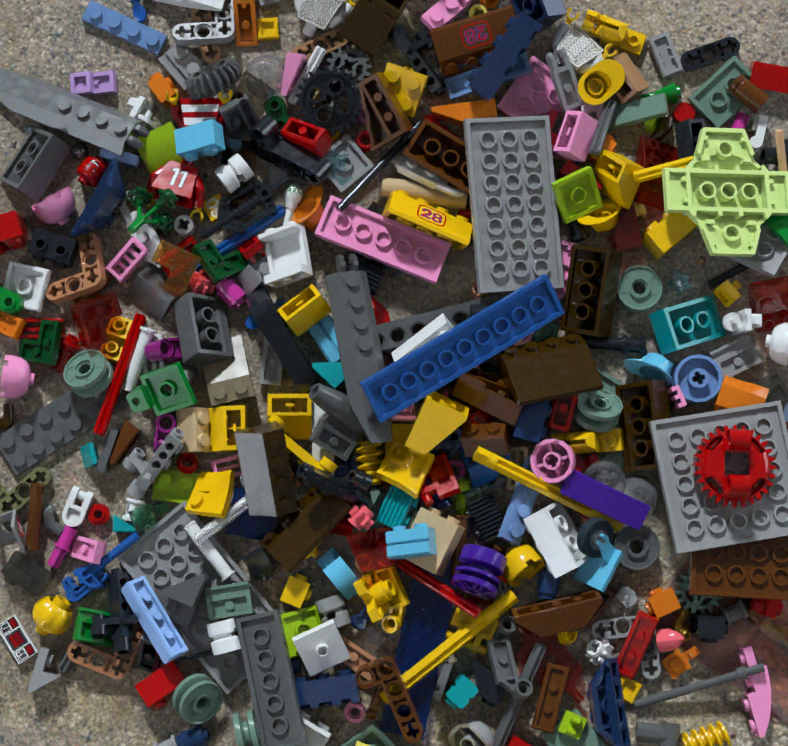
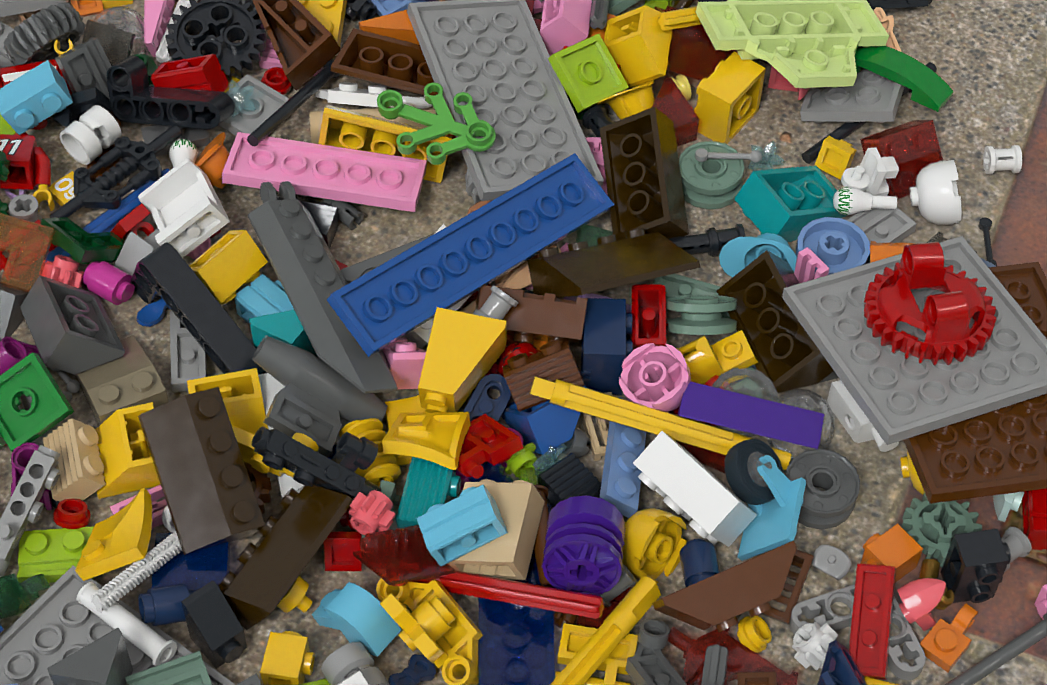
camera: 15 degrees left, 30 degrees down
(234, 544) = (163, 604): none -> dark blue brick
(465, 232) = (438, 124): none -> bright green plant
(465, 394) = (496, 305): none -> light grey bush
(635, 279) = (702, 155): none -> light grey hinge
(723, 337) = (852, 201): none -> white piece

